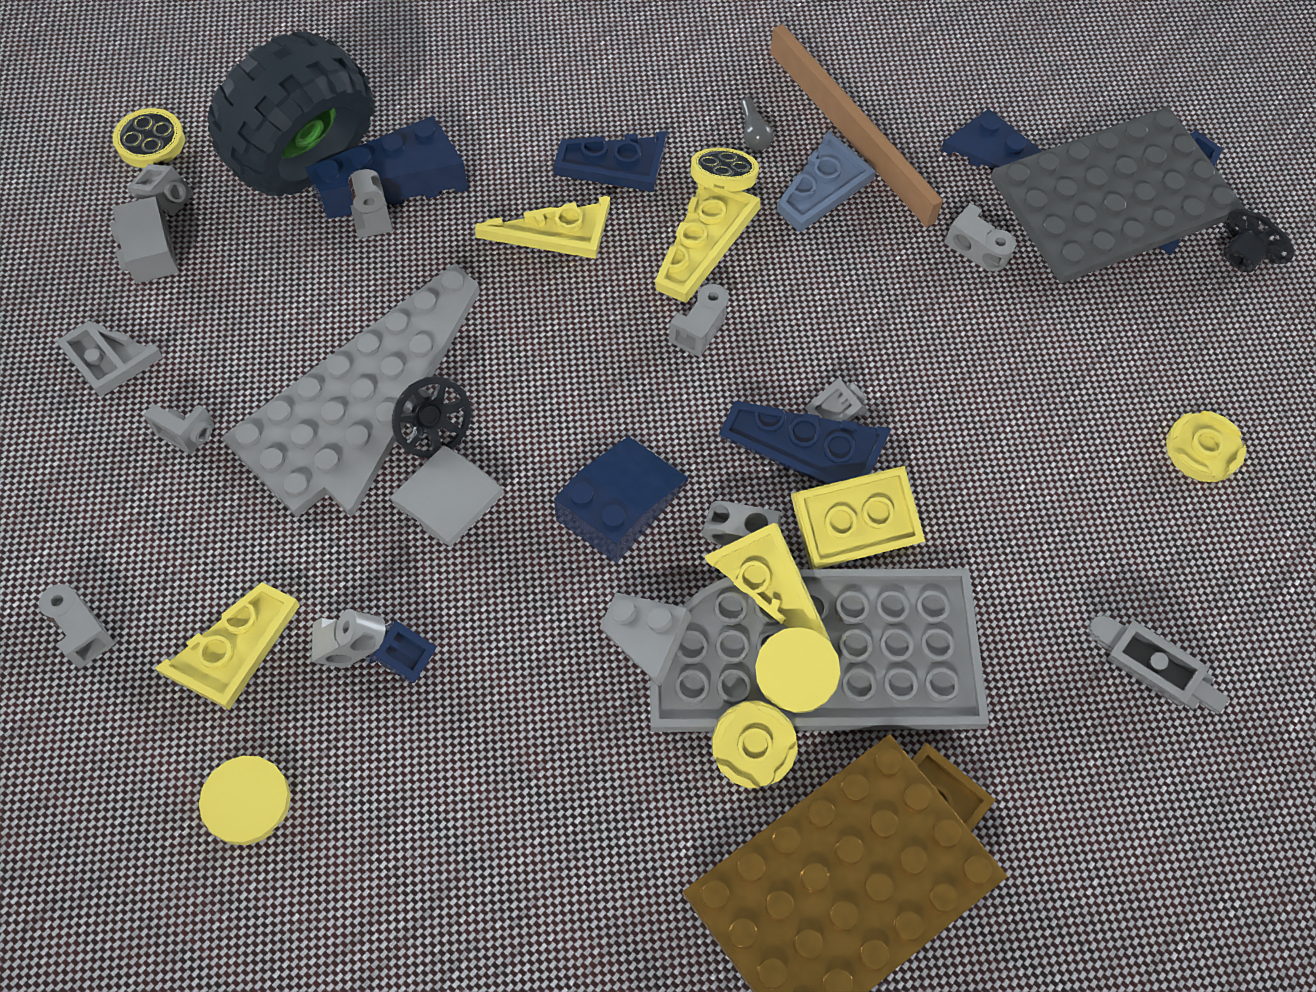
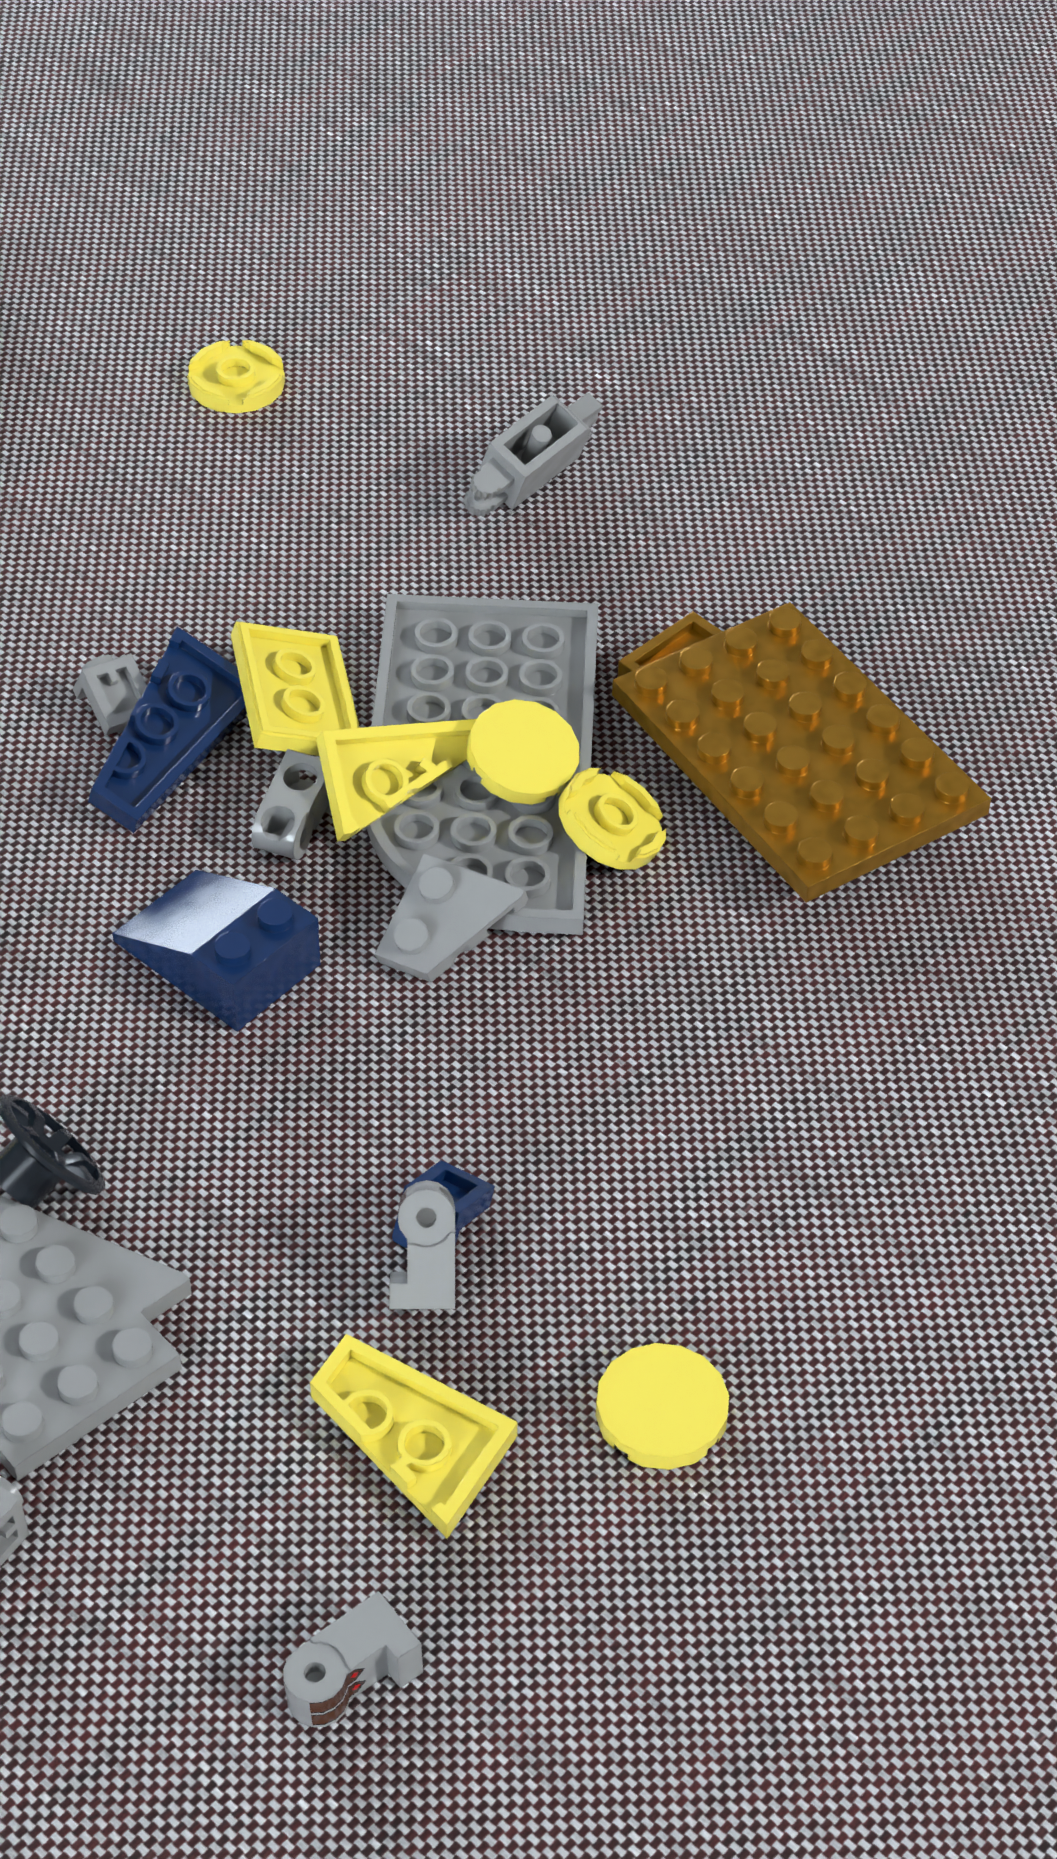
camera: 85 degrees left, 15 degrees down
(447, 495) = (182, 1150): light grey slope -> none

